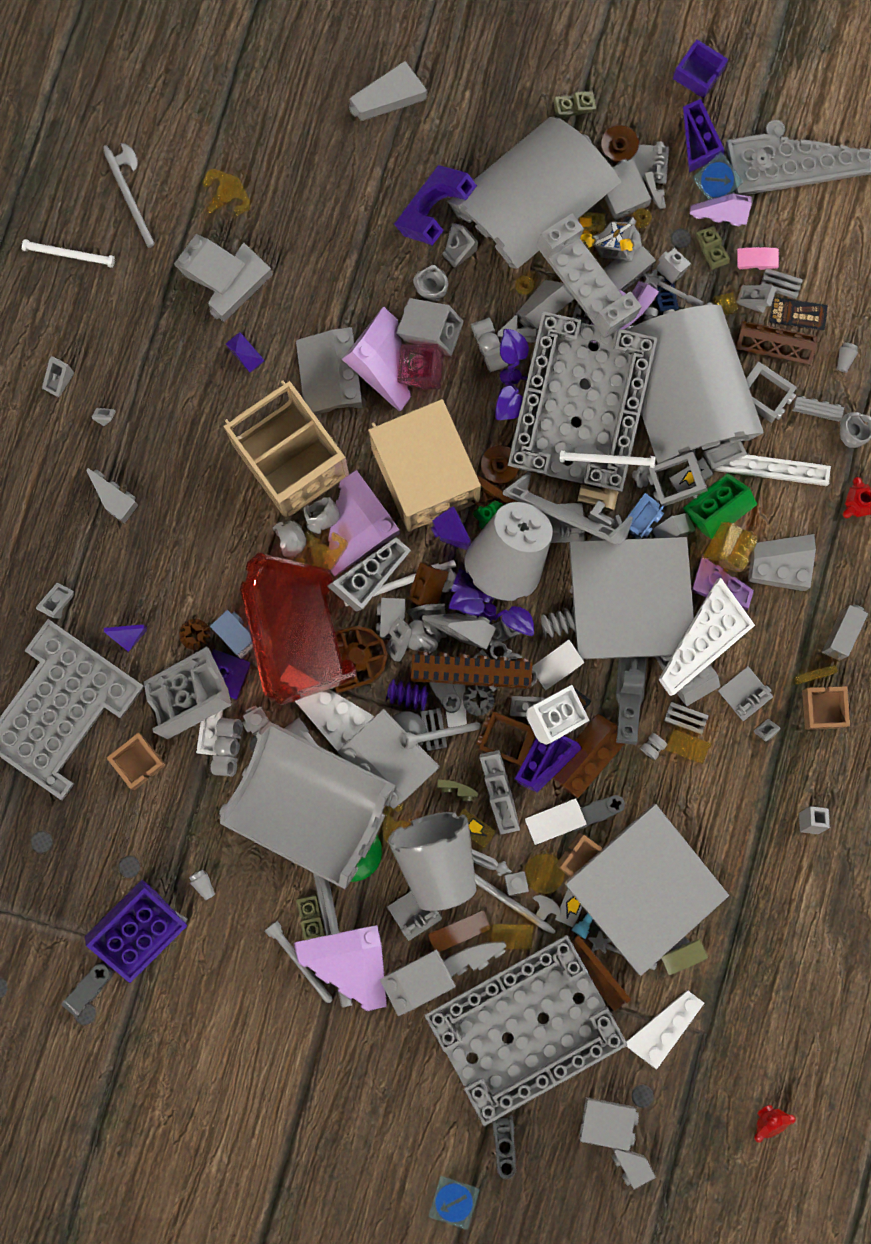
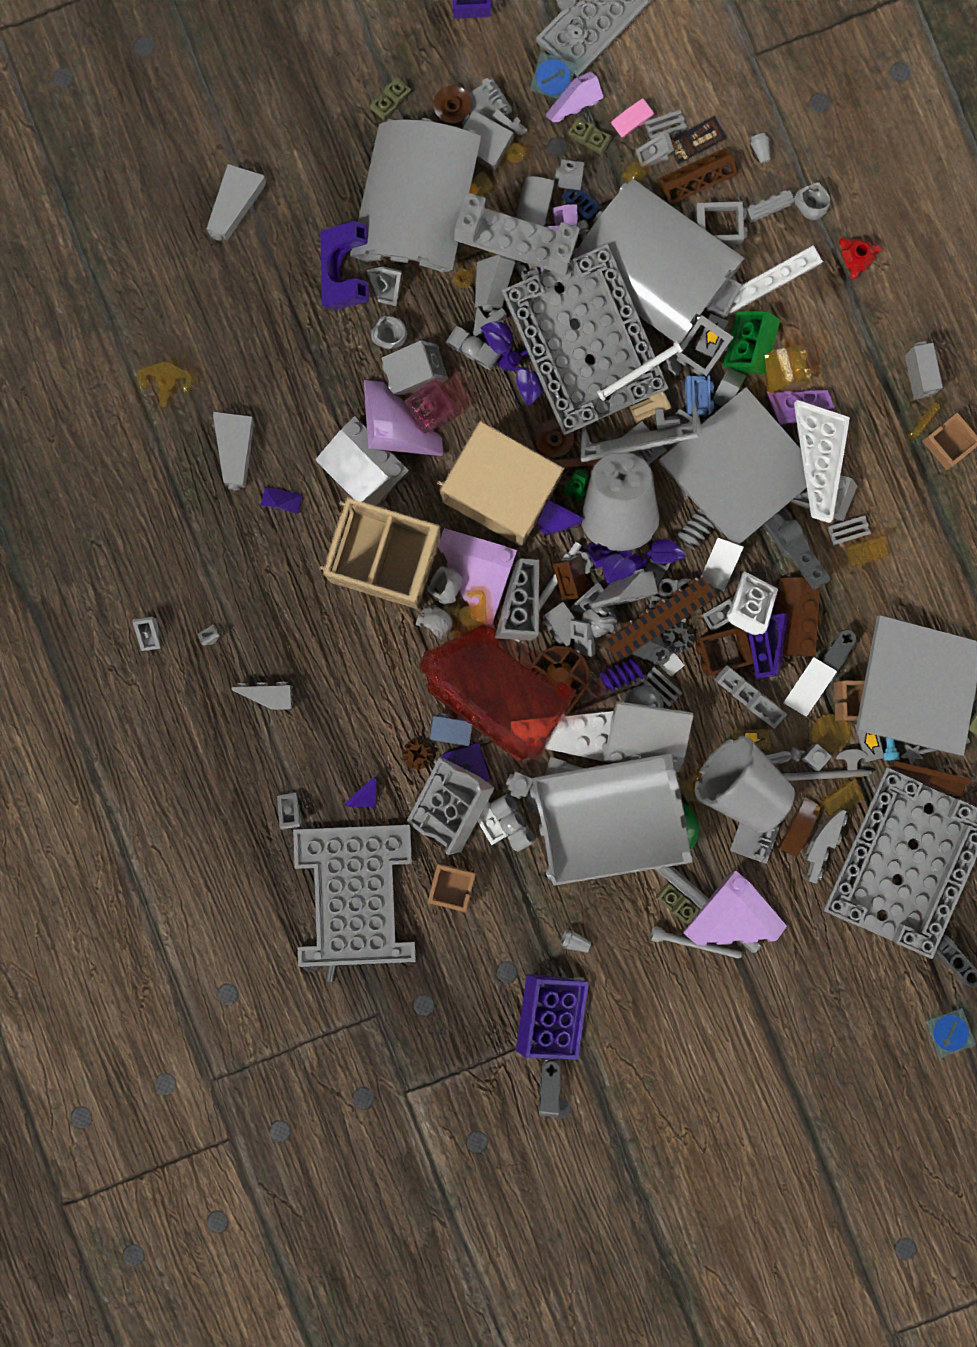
camera: 40 degrees left, 5 degrees up
(26, 245) = (75, 526): white bar -> none
(128, 157) = (61, 411): light grey piece -> none
(209, 264) = (200, 450): light grey slope -> none
(409, 740) = (655, 710): light grey piece -> none
(417, 982) = (799, 890): light grey slope -> none
(463, 791) = (721, 718): olive slope -> none
(616, 241) = (511, 186): torso -> none
(653, 746) = (841, 566): light grey wheel -> none
(654, 280) = (564, 197): light grey piece -> none
(700, 135) = (513, 50): dark purple wedge -> none
(745, 693) = (880, 476): light grey hinge -> none
(767, 730) = (918, 492): light grey slope -> none
(784, 562) = (835, 349): light grey wedge -> none

